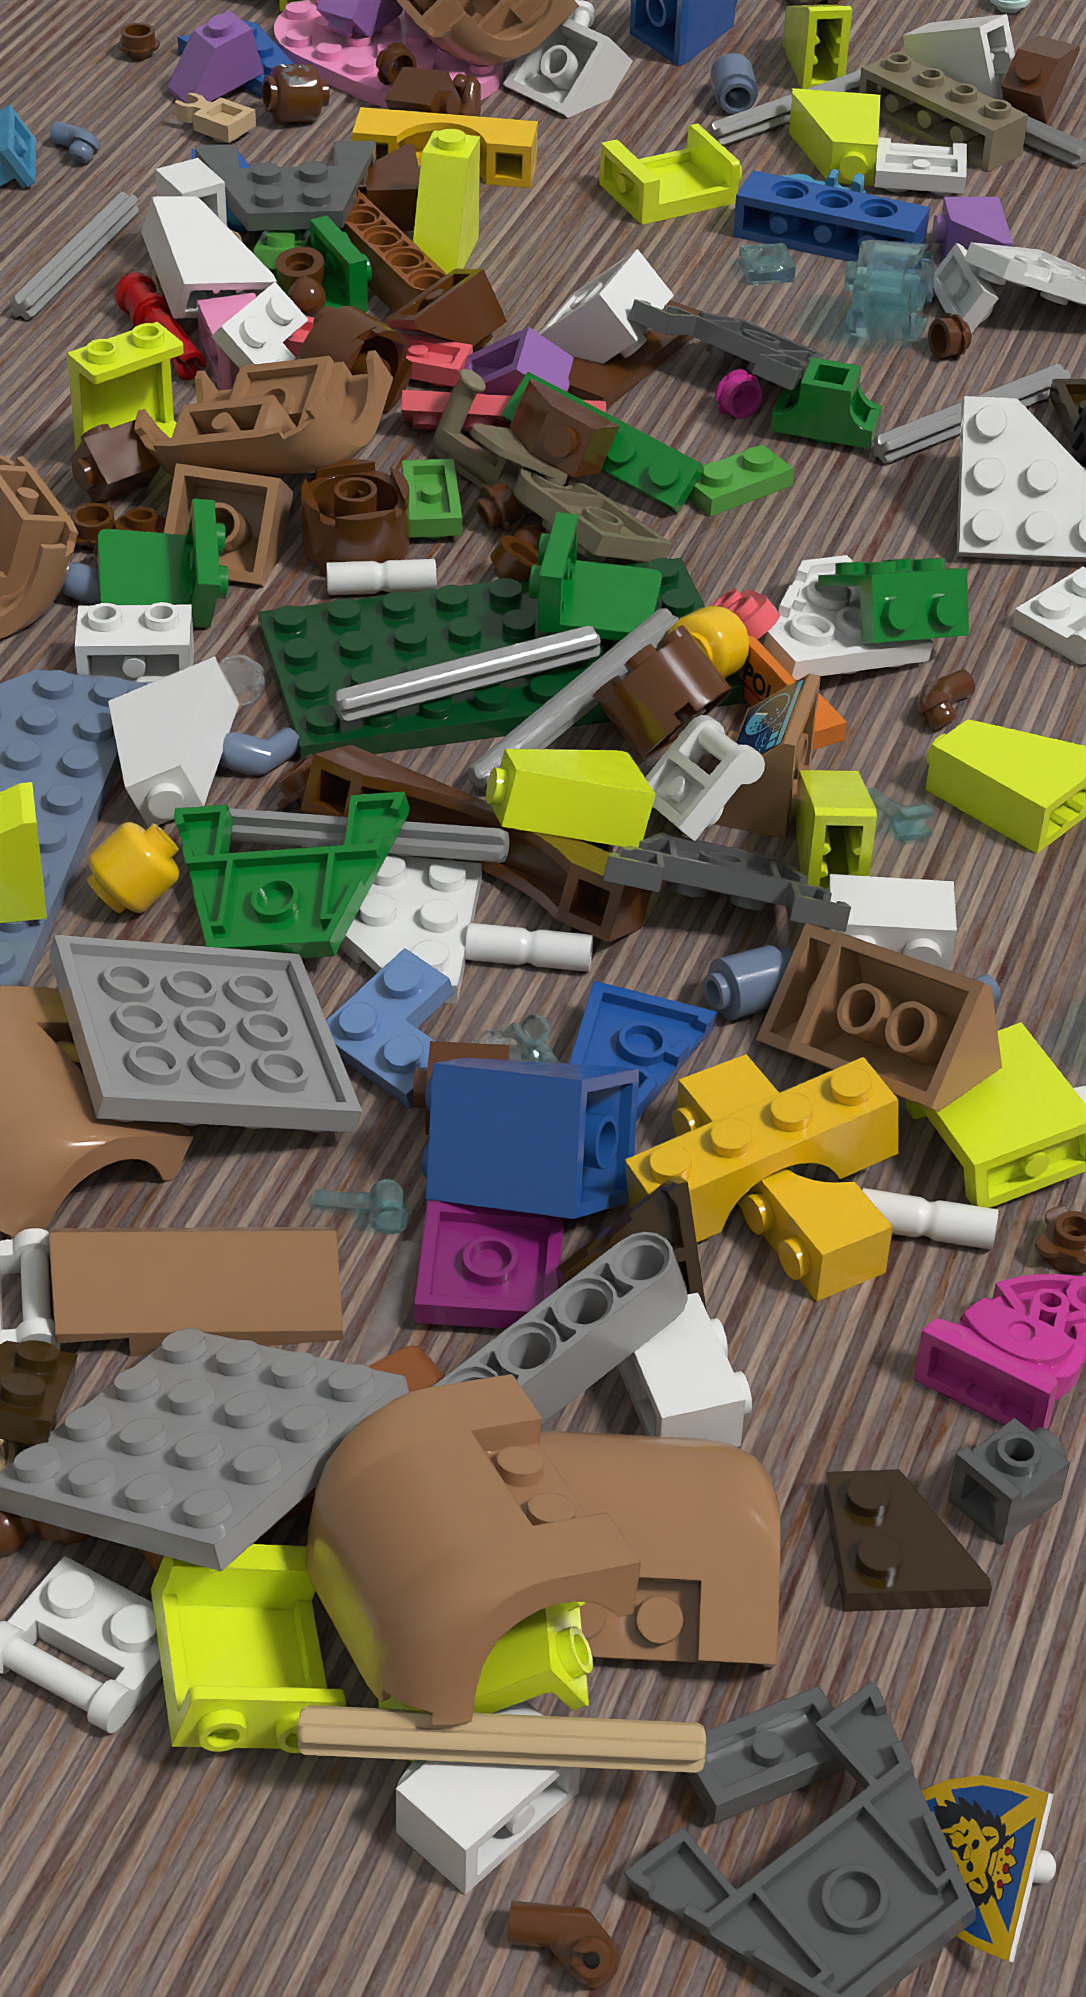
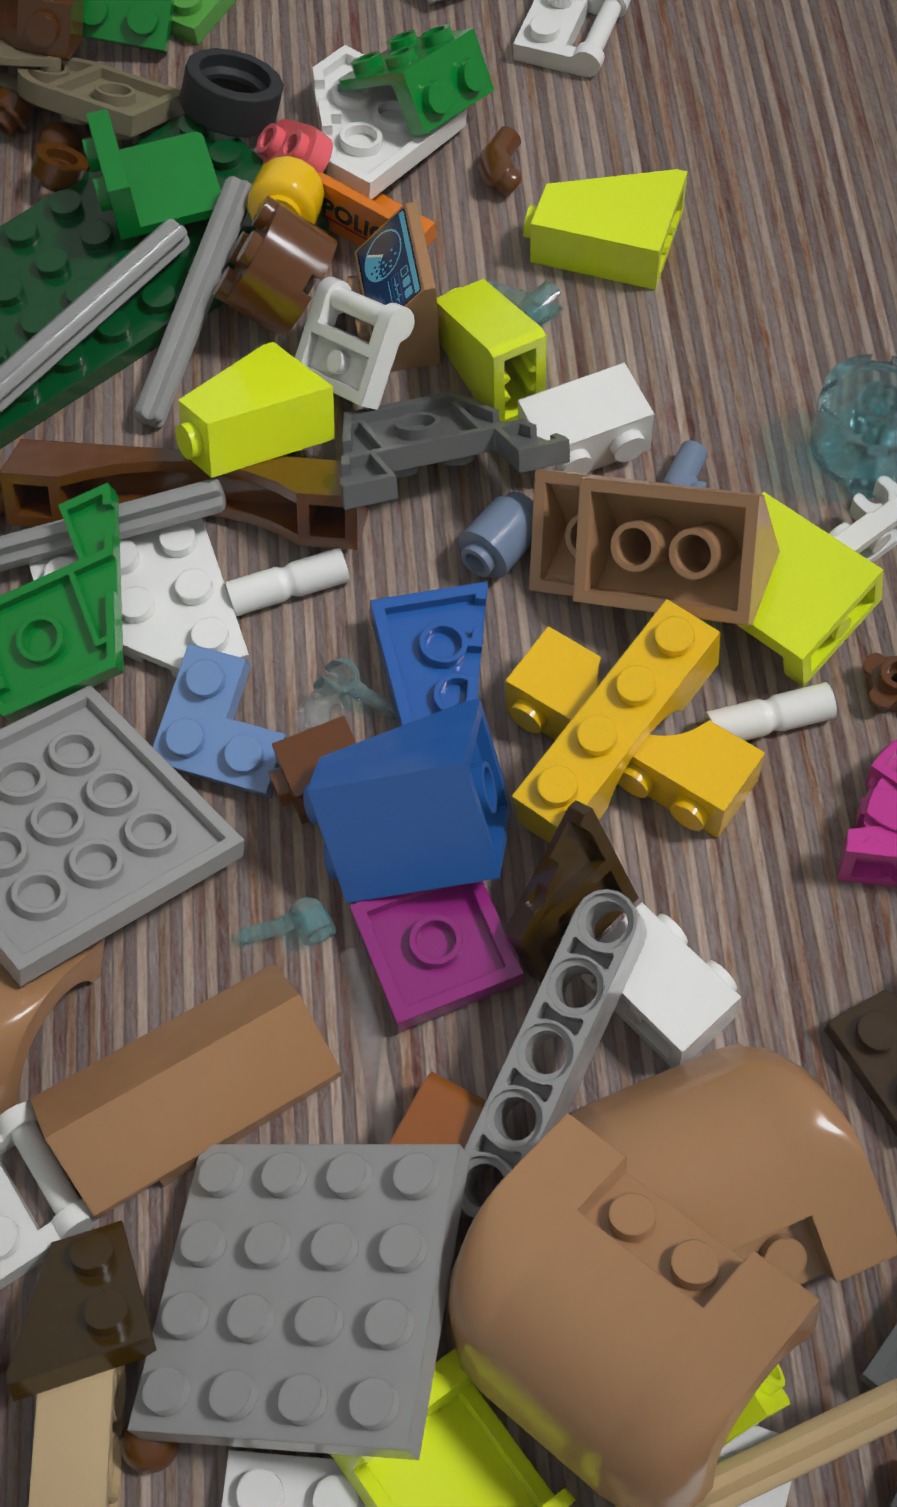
camera: 20 degrees left, 20 degrees up
(711, 553) = (230, 92): none -> black tyre

